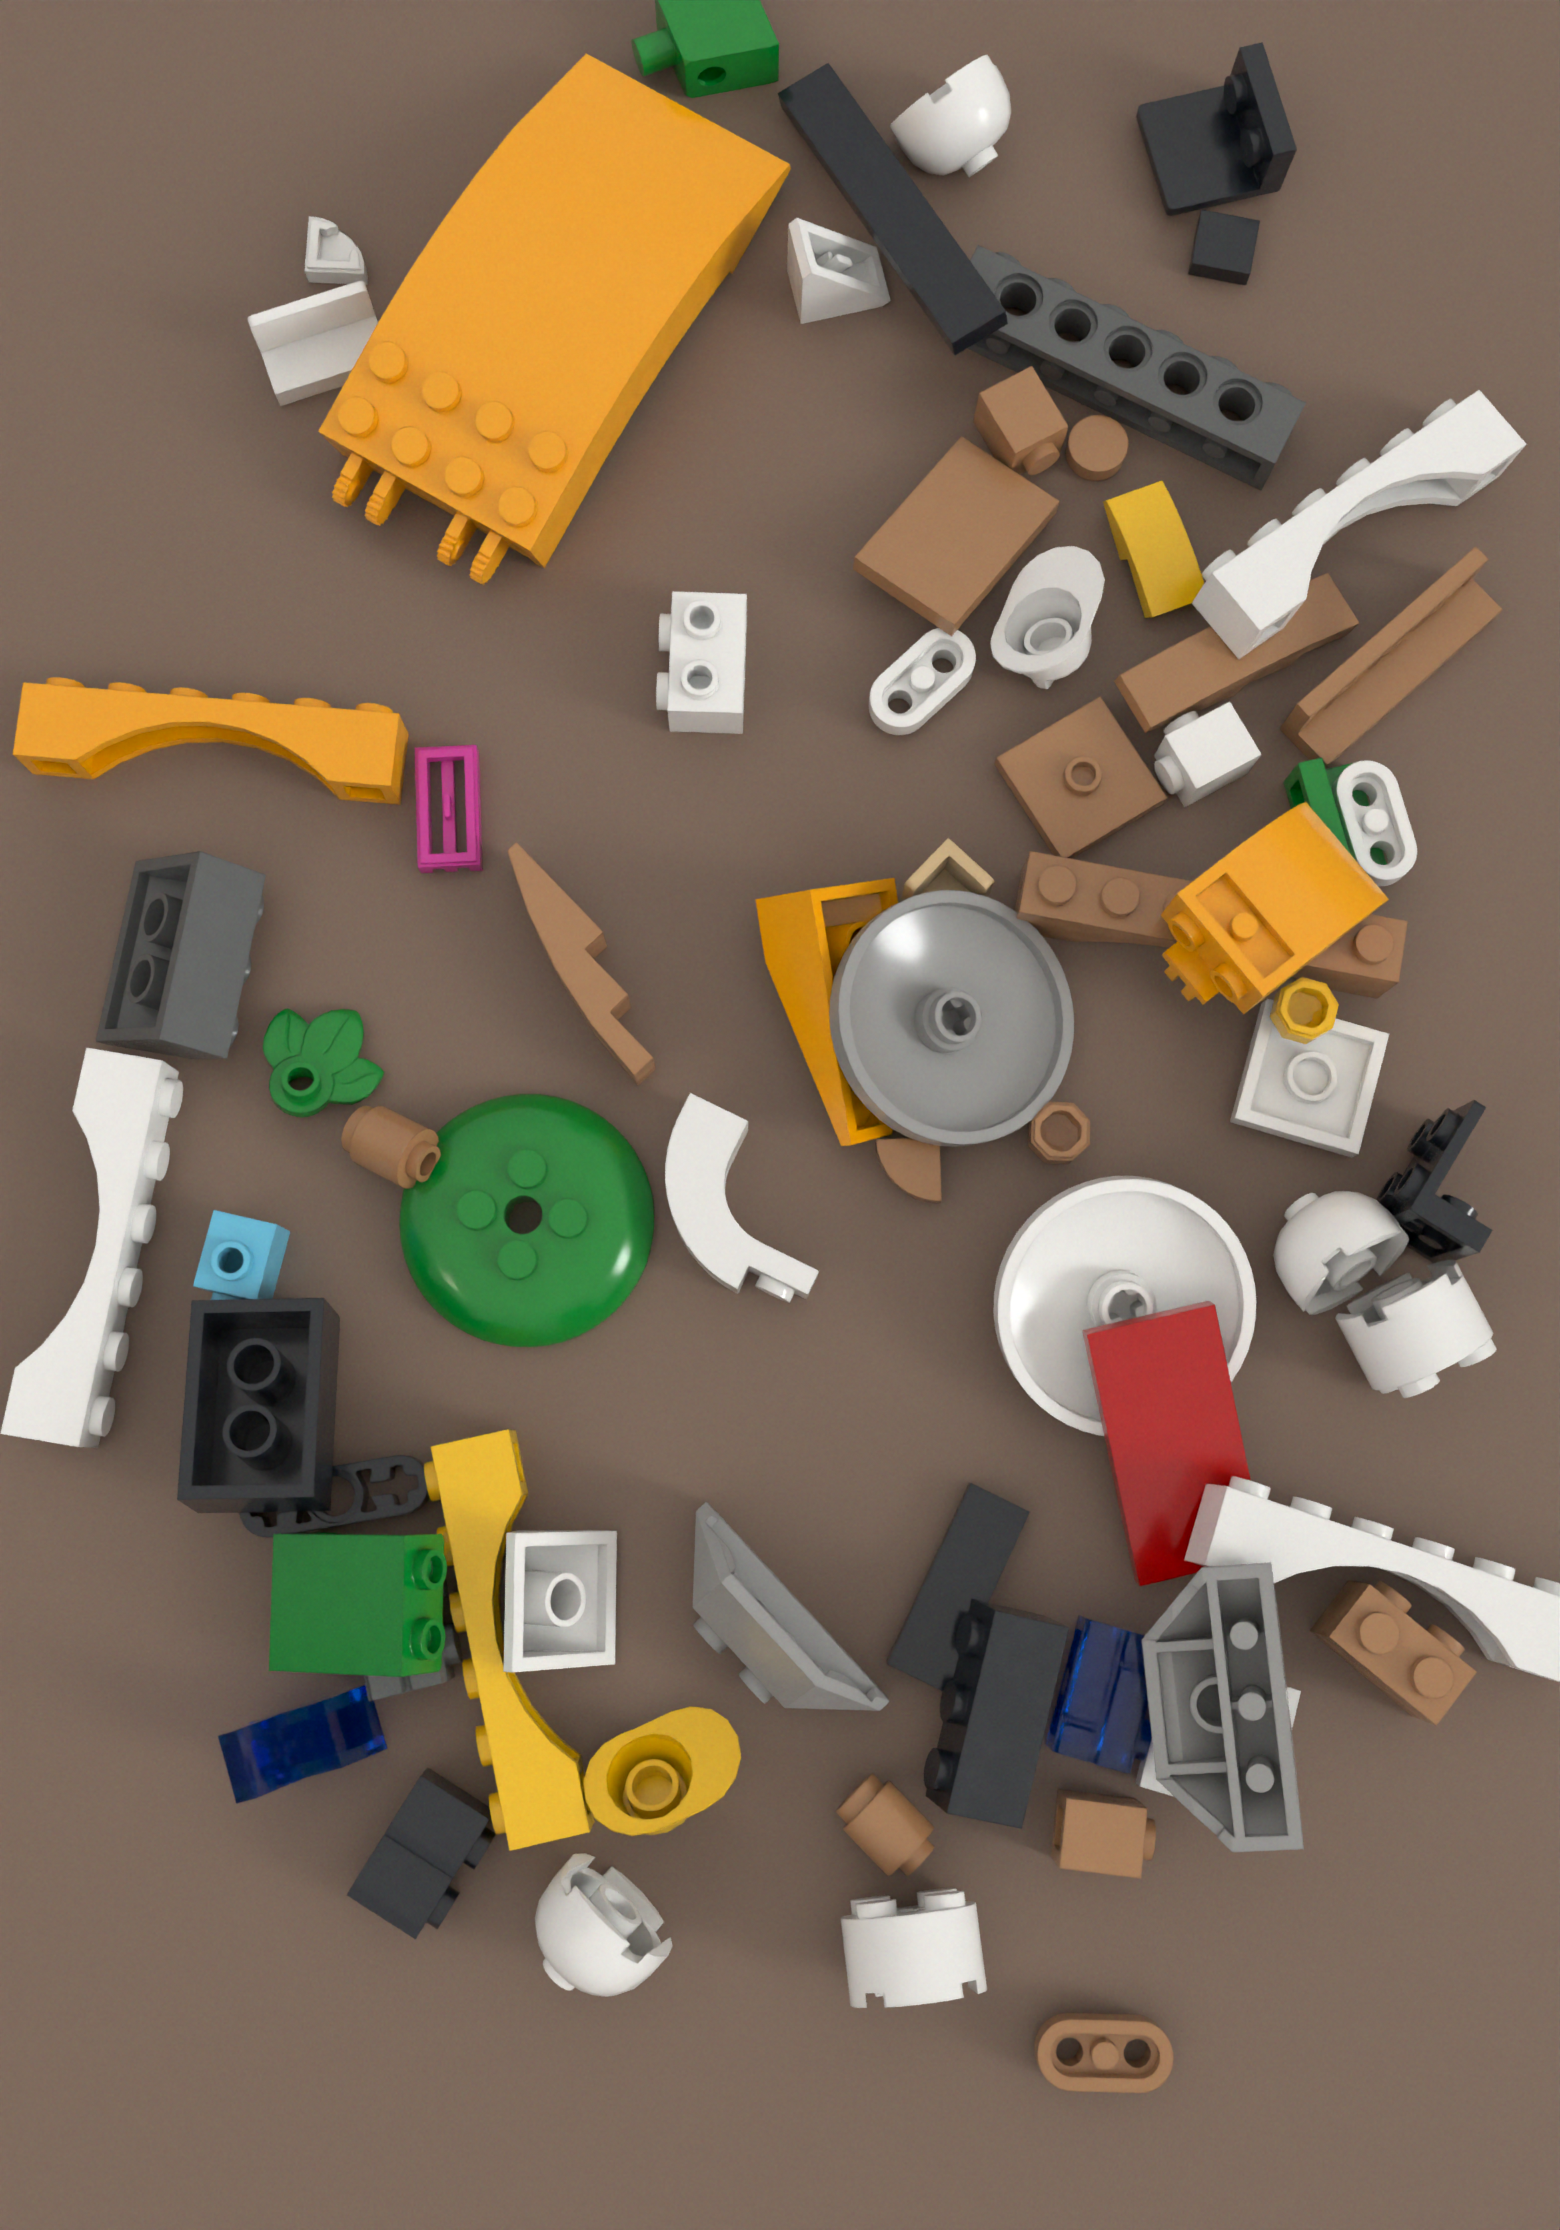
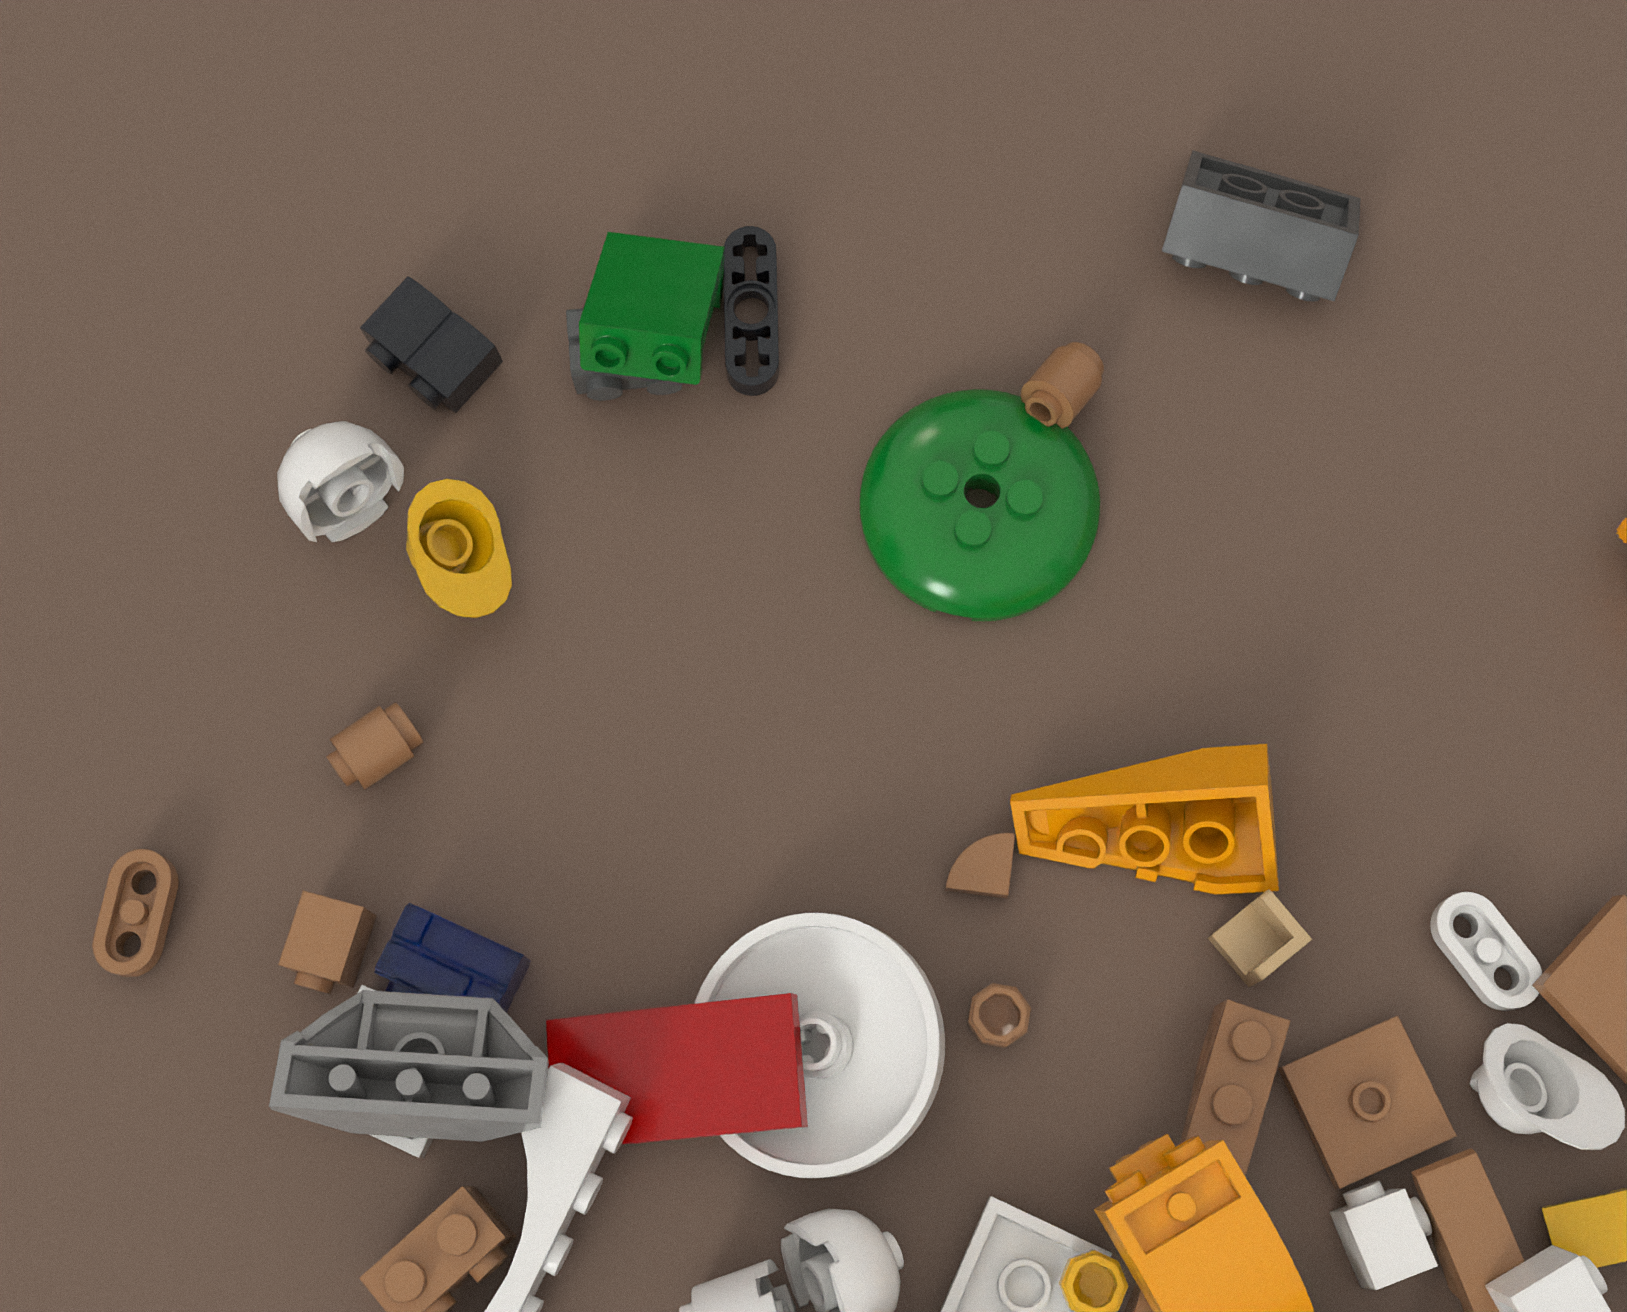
camera: 105 degrees right, 5 degrees down
(67, 1382) = (1112, 163): white arch -> none
(91, 730) = (1488, 167): light orange arch -> none
(241, 1257) = (973, 248): medium azure brick -> none
(259, 1406) = (839, 245): black brick -> none
(301, 1743) = (541, 251): clear blue brick -> none
(320, 1051) = (1159, 339): green plate -> none
(449, 859) = (1385, 499): dark pink tile -> none
(533, 1767) = (483, 445): yellow arch -> none
(559, 1599) = (627, 481): white slope -> none
(572, 945) = (1235, 567): medium nougat slope -> none
(695, 1181) = (969, 654): white arch -> none
(705, 662) = (1520, 734): white brick -> none
(770, 1628) = (571, 665): light grey wedge -> none
(913, 1950) = (259, 746): white brick -> none
(951, 1018) = (1126, 921): light grey dish -> none
(962, 1570) = (576, 848): black tile -> none
(995, 1713) = (454, 856): black brick -> none

